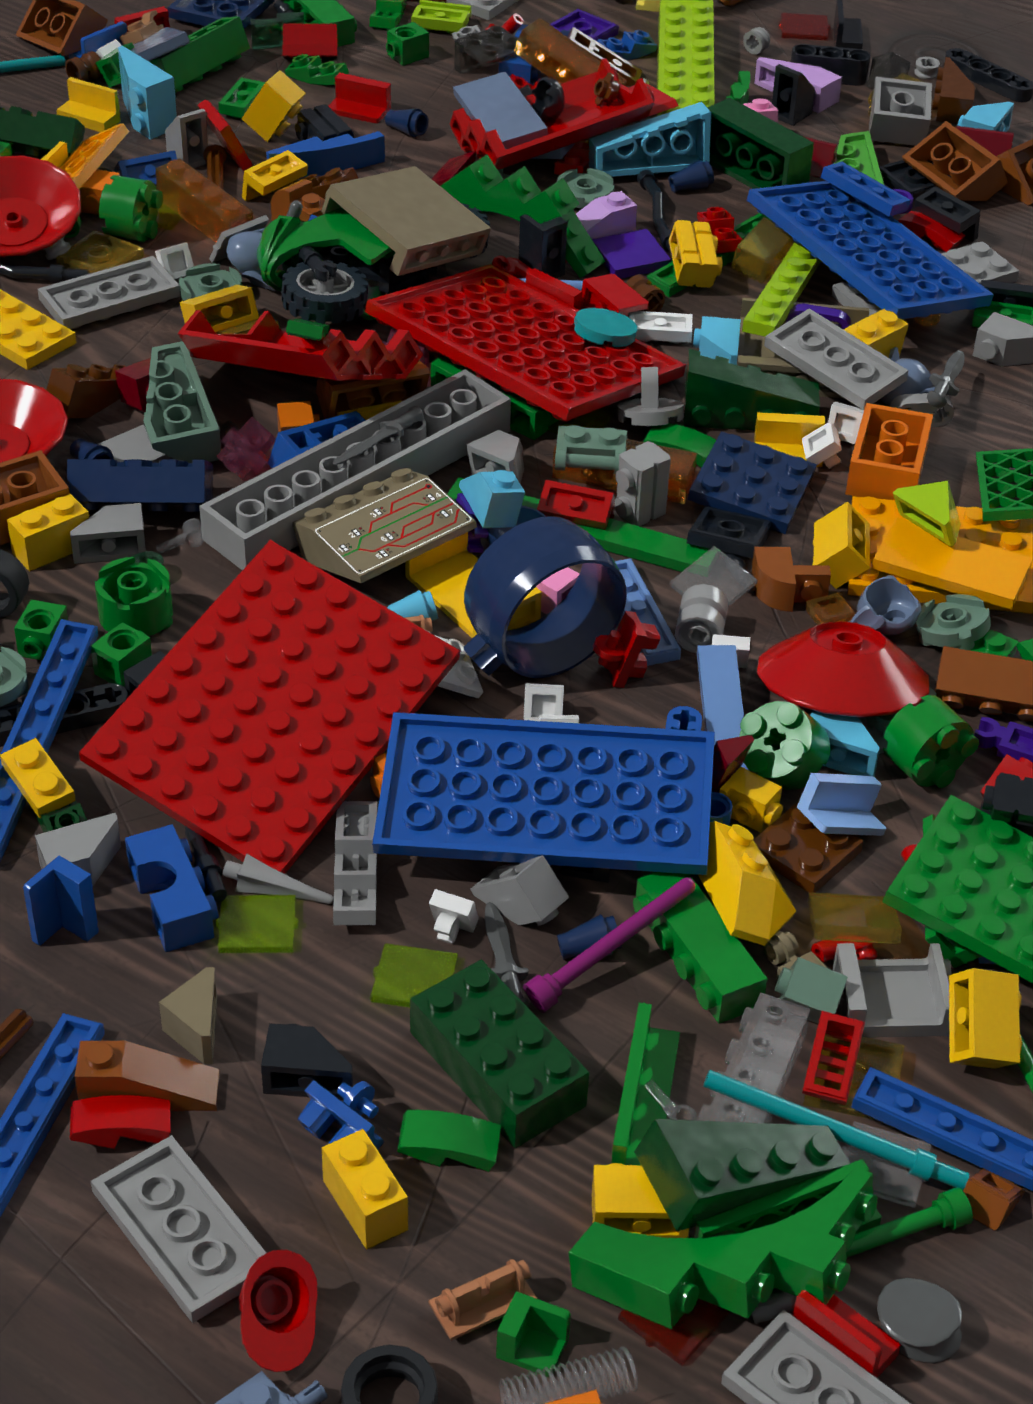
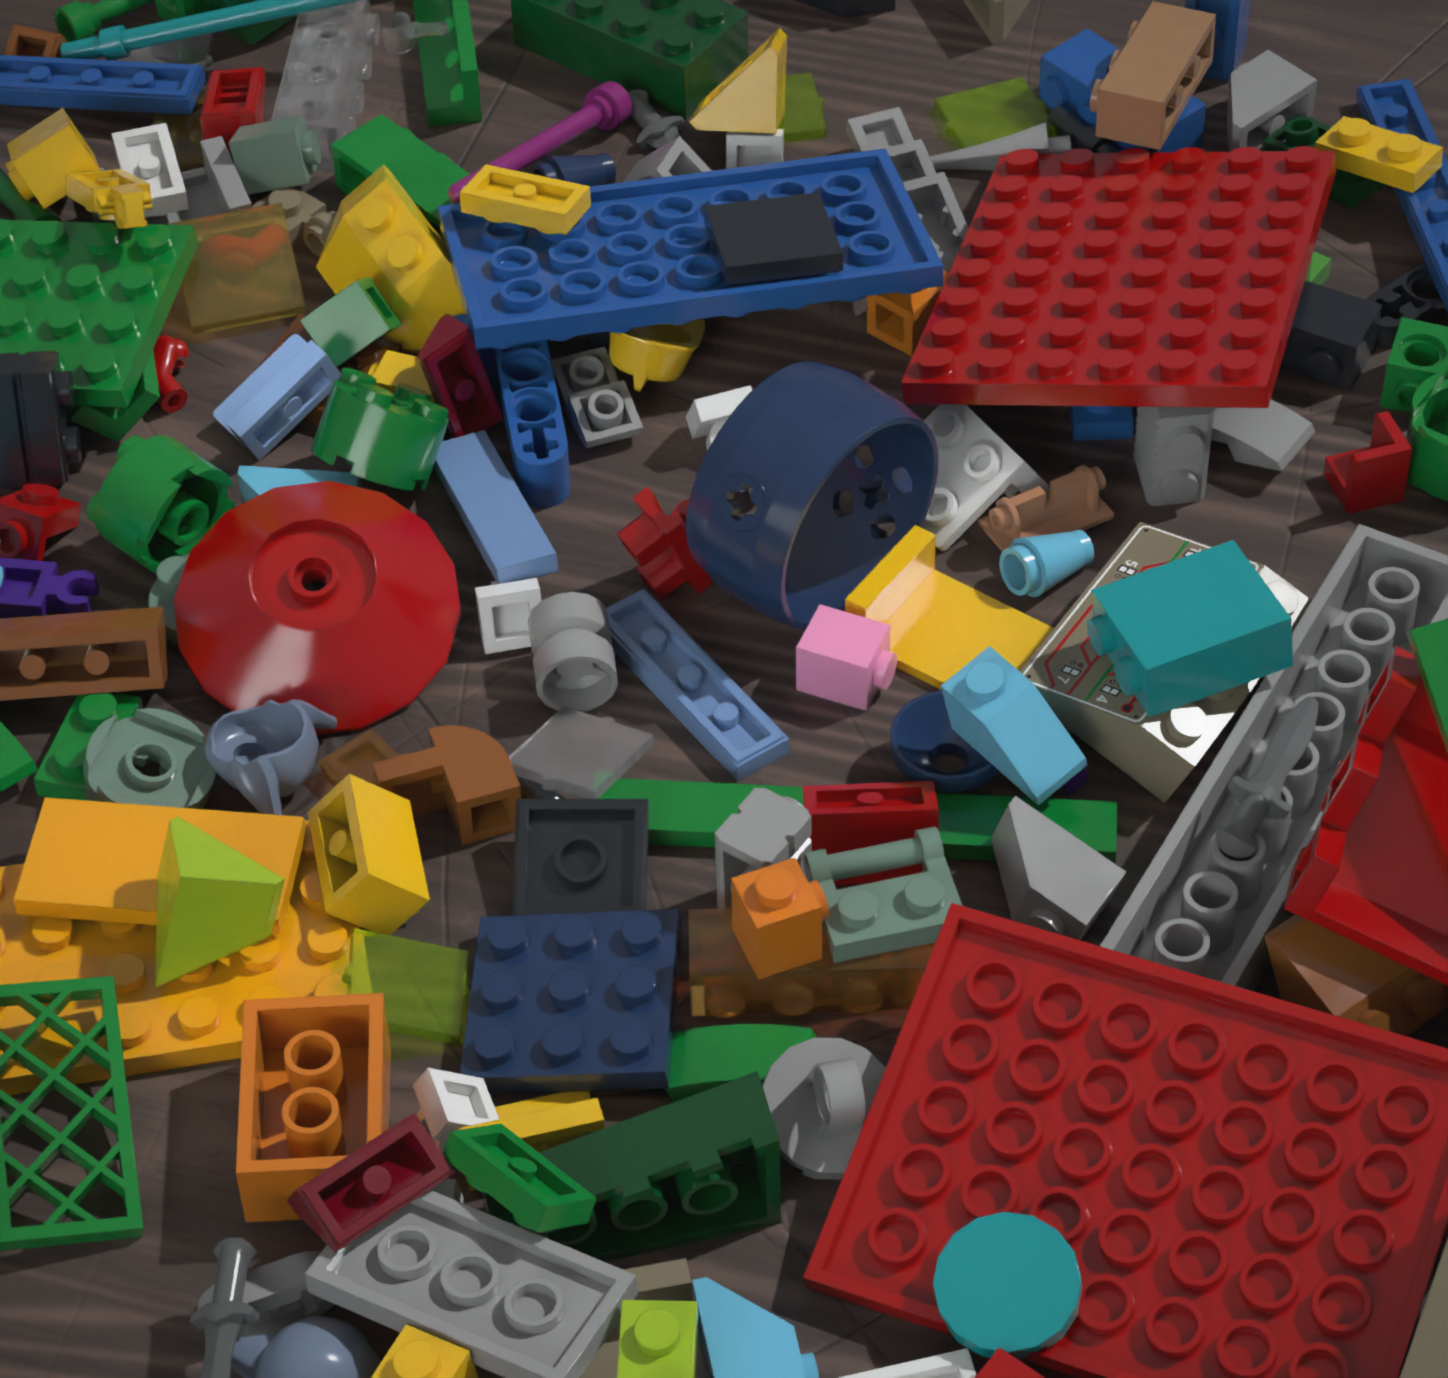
camera: 165 degrees right, 5 degrees up
(154, 836) = (1154, 75): none -> medium nougat brick
(193, 600) = (1374, 473): none -> red panel
(382, 483) = (1190, 628): none -> teal brick
(446, 927) = (751, 95): none -> yellow slope
(494, 751) = (773, 239): none -> black tile
(650, 426) = (778, 917): none -> orange brick
(650, 823) = (525, 199): none -> yellow plate
(785, 829) = (351, 321): none -> panel
(806, 376) = (518, 1178): none -> green plate
(827, 497) = (419, 981): none -> clear neon green piece
(875, 389) = (371, 1183): none -> dark red slope
(908, 1007) = (151, 157): none -> white plate
(943, 924) = (113, 195): none -> yellow hinge

